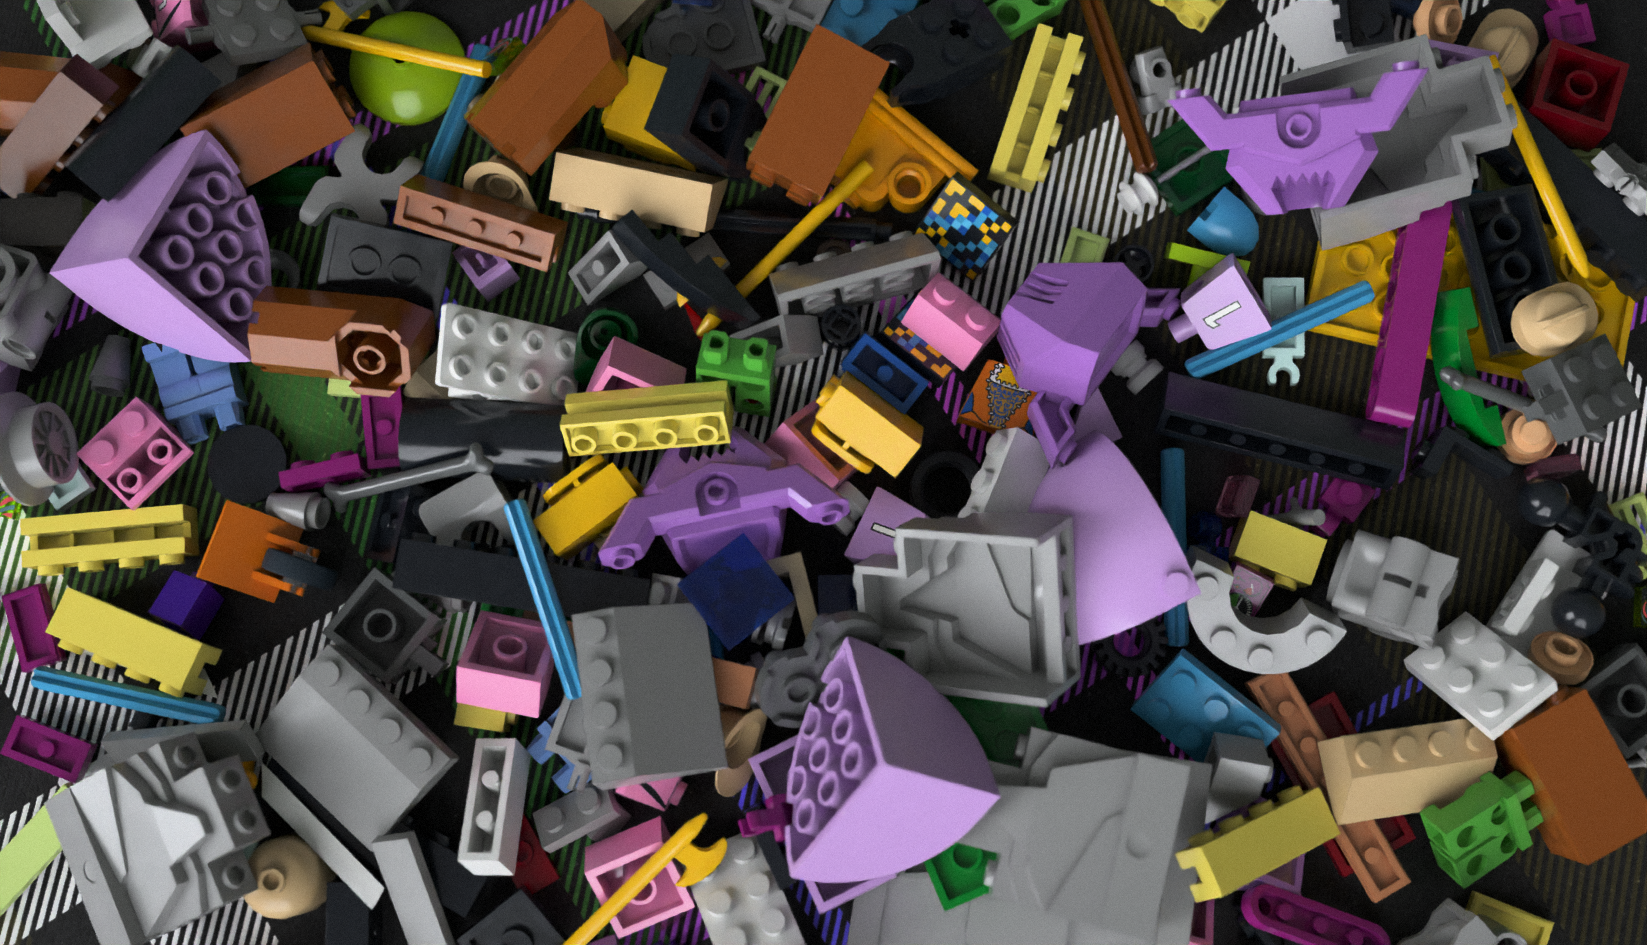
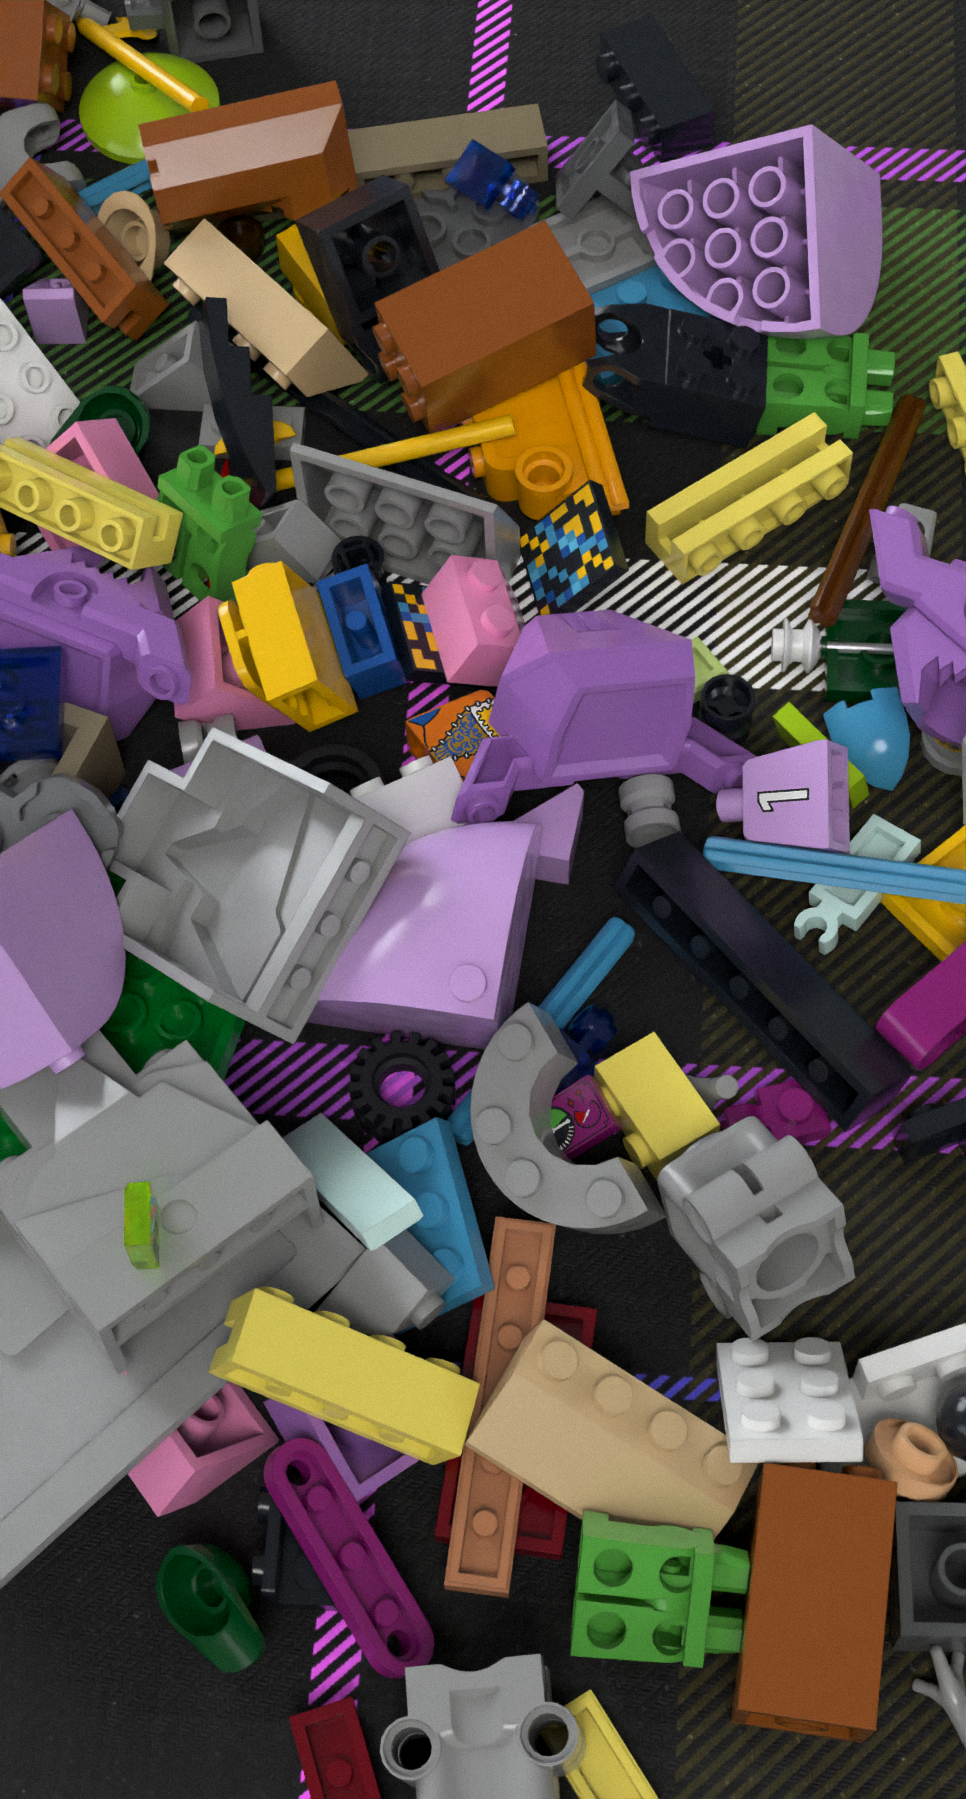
camera: 40 degrees right, 20 degrees down
(1135, 872) = (141, 1225): none -> clear neon green tile
(1162, 728) = (353, 1184): none -> light aqua tile
(1237, 496) = (656, 1017): clear pink tile -> none

